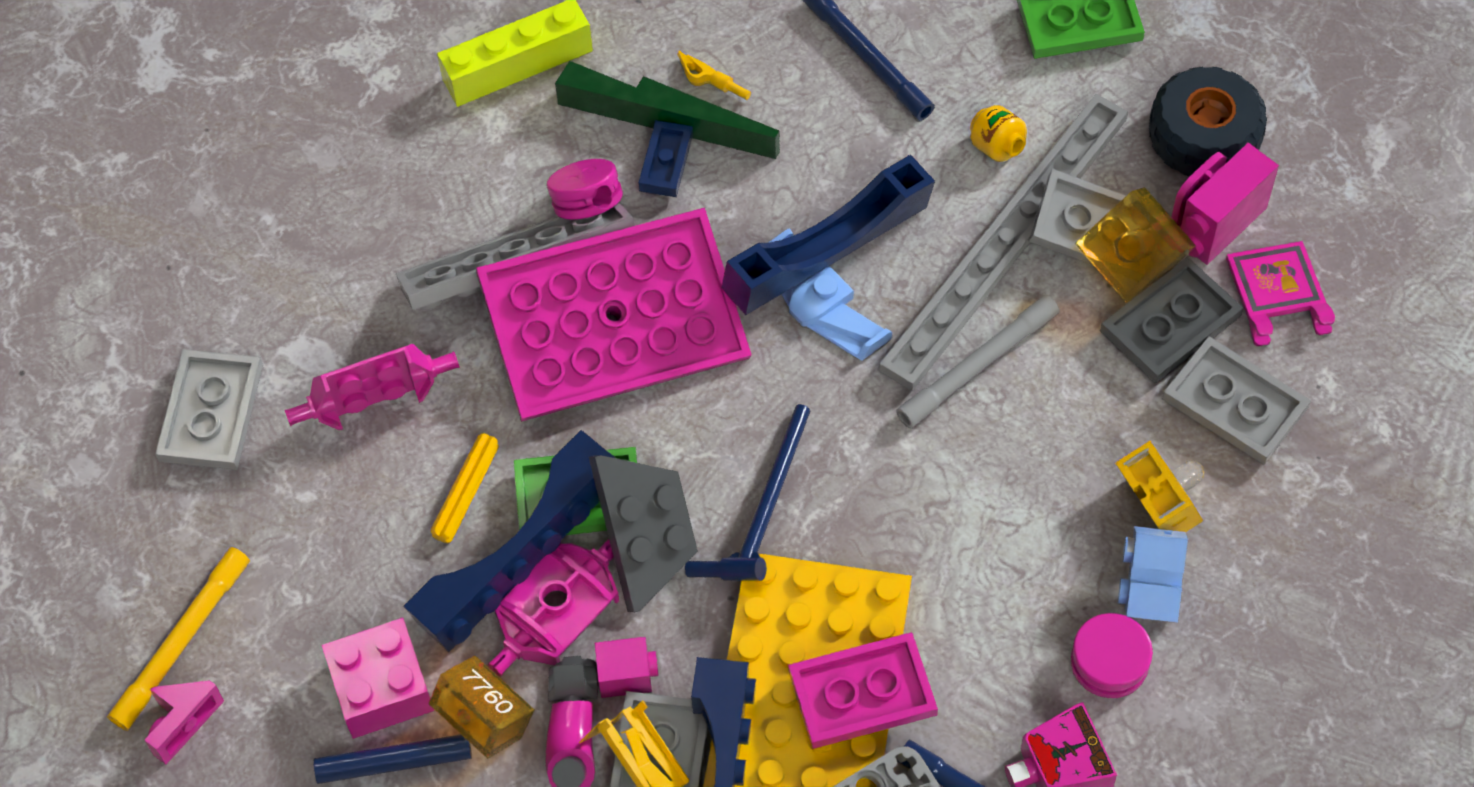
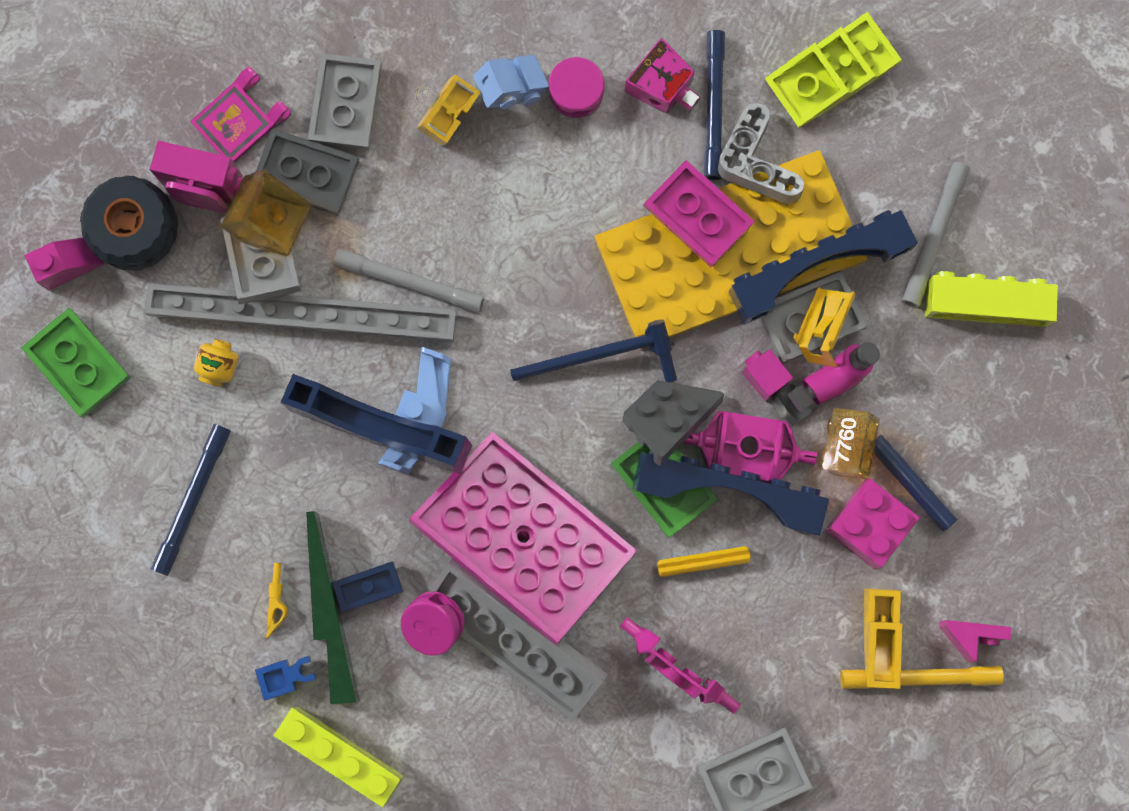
camera: 125 degrees left, 20 degrees up
(251, 617) = (882, 637): none -> yellow slope
(626, 43) = (281, 678): none -> blue plate
(1201, 37) = (61, 262): none -> dark pink slope

